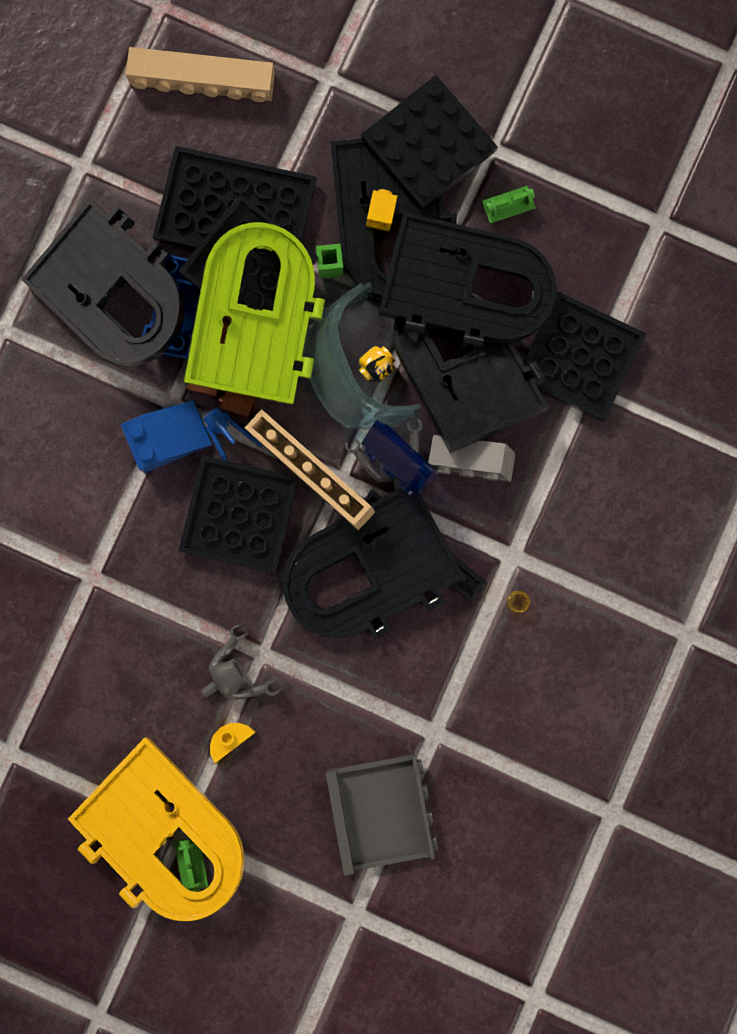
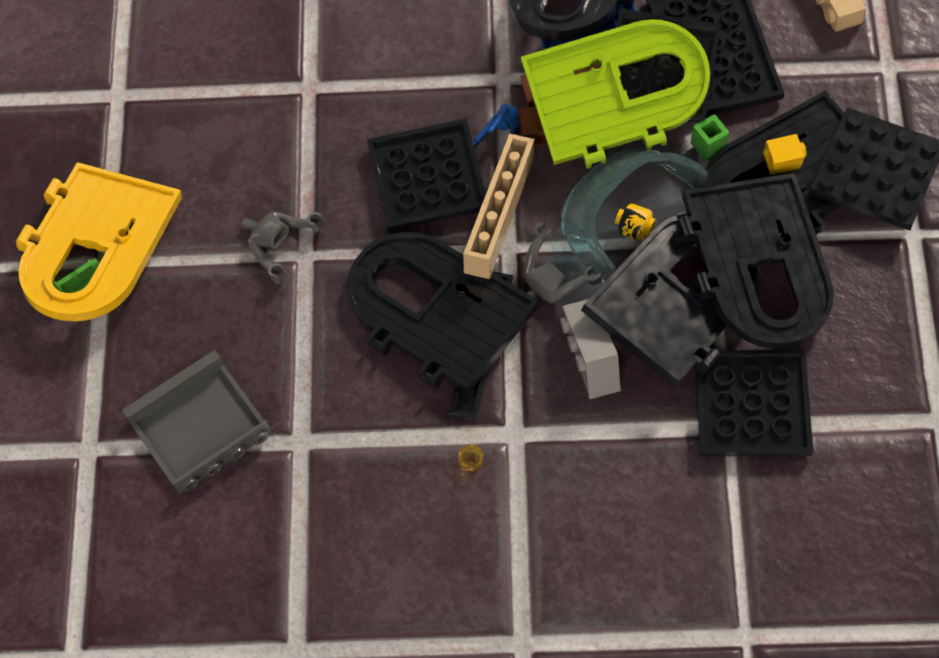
camera: 70 degrees right, 20 degrees down
(166, 435) = (468, 83): blue slope -> none
(228, 738) = (211, 261): yellow plate -> none
(398, 458) = (552, 269): clear blue slope -> none
(509, 204) = (865, 270): bright green hinge -> none

